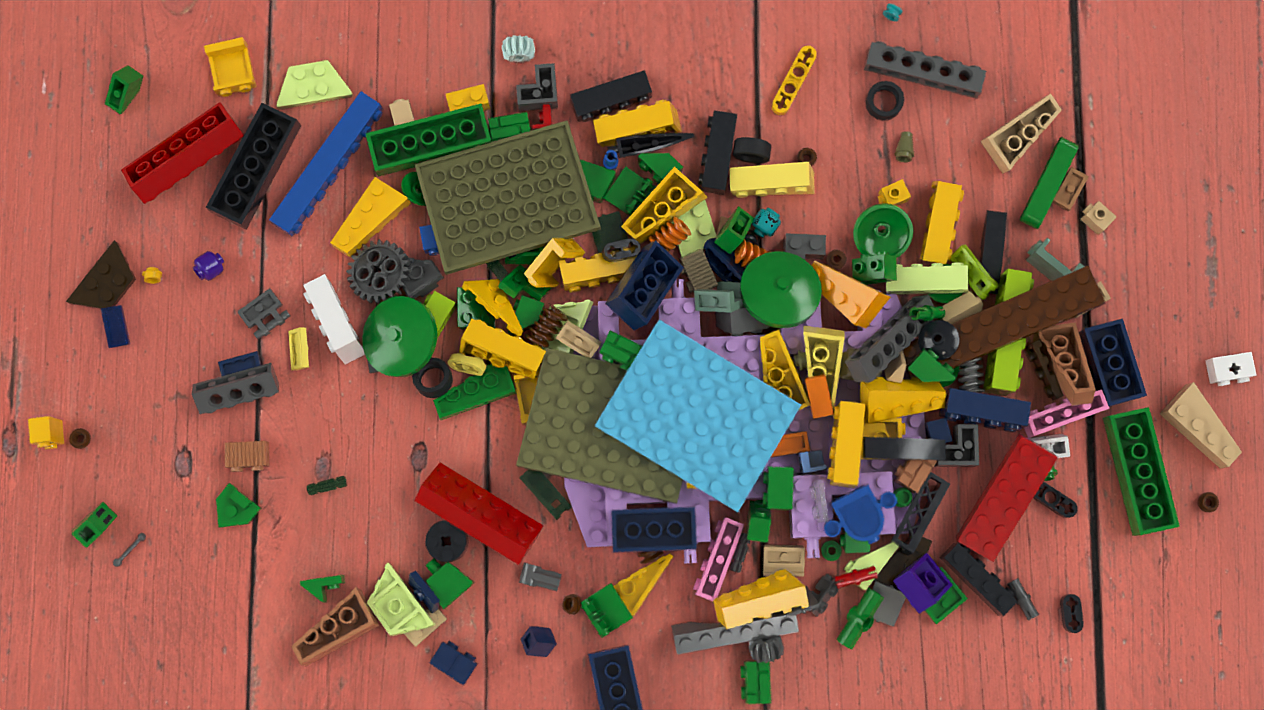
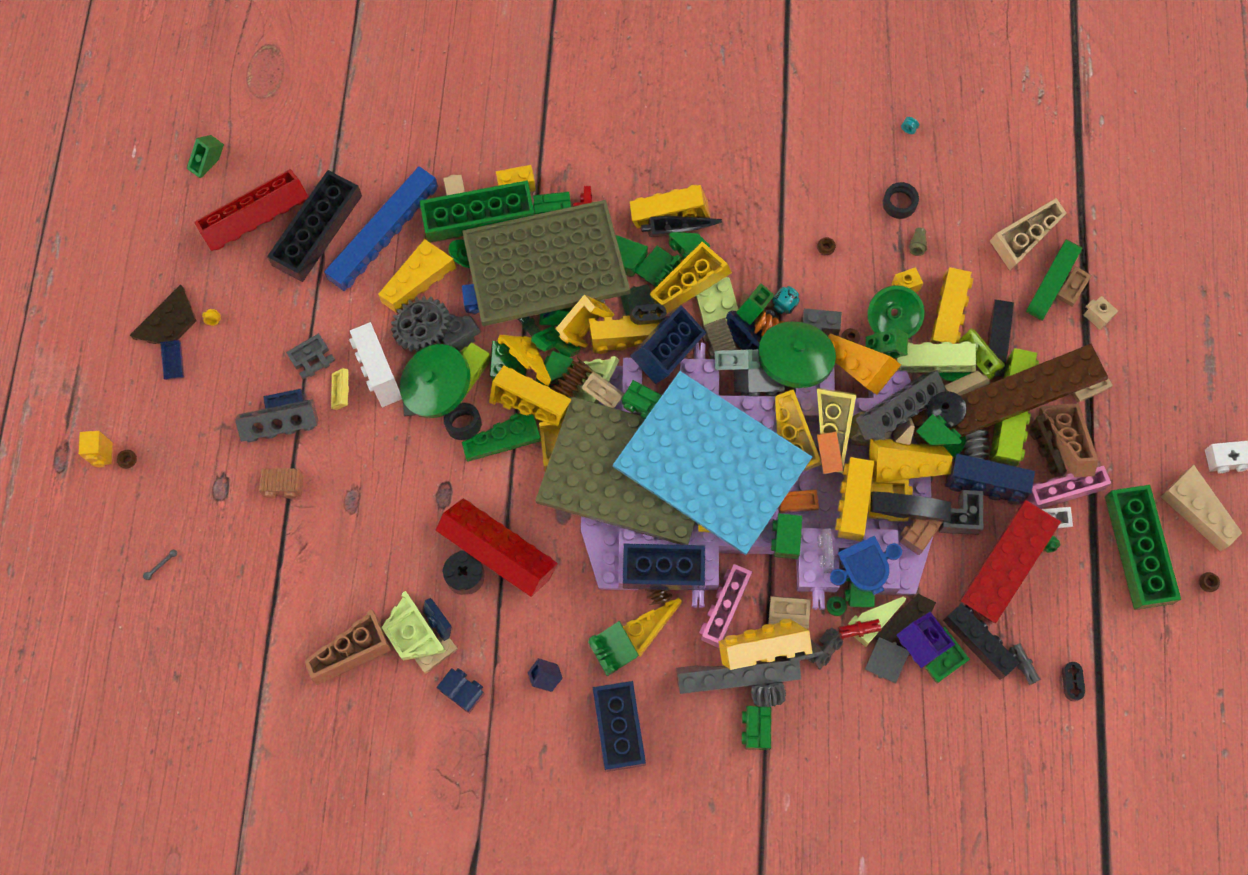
camera: 10 degrees right, 10 degrees down
(93, 524) = (129, 537): green slope -> none
(208, 265) = (264, 310): dark purple head -> none
(230, 67) = (303, 141): yellow panel -> none
(235, 507) = (264, 531): green plate -> none
(311, 84) = (375, 161): yellowish green wing -> none
(317, 586) = (337, 606): green slope -> none
(326, 485) = (354, 515): clear green axle -> none
(447, 582) = (461, 612): green torso -> none
(467, 364) = (496, 411): light yellow plate -> none
(518, 48) = (565, 138): light aqua gear -> none
(535, 576) = (547, 612): dark grey piece -> none
(542, 93) = (586, 174): dark grey brick -> none
(545, 492) = (561, 533): clear green plate -> none
(572, 604) = (580, 641): reddish brown plate -> none
(610, 160) = (643, 236): blue pin -> none
(611, 96) = (647, 183): black brick -> none
(671, 236) = (698, 303): orange piece -> none
(718, 152) = (744, 235): black brick -> none
(740, 553) = (747, 602): dark grey axle -> none
(752, 150) = (775, 235): black tyre -> none
(758, 521) = (766, 570): green brick -> none
(772, 179) = (794, 262): light yellow wedge -> none
(794, 80) = (818, 180): yellow beam -> none
(800, 360) = (813, 420): olive plate -> none
(811, 462) = (820, 518): medium blue panel -> none
(860, 618) = (862, 671): green piece -> none
(903, 496) = (908, 557): green plate -> none
(914, 73) = (944, 183): dark grey brick -> none
(917, 531) = (933, 571): black fence -> none
(927, 313) = (935, 384): green pin -> none
(938, 430) = (945, 493): dark blue panel -> none
(1046, 263) = (1047, 345): sand green panel -> none
(1065, 501) = (1062, 581): black beam -> none
(1112, 362) = (1115, 443): dark blue brick -> none

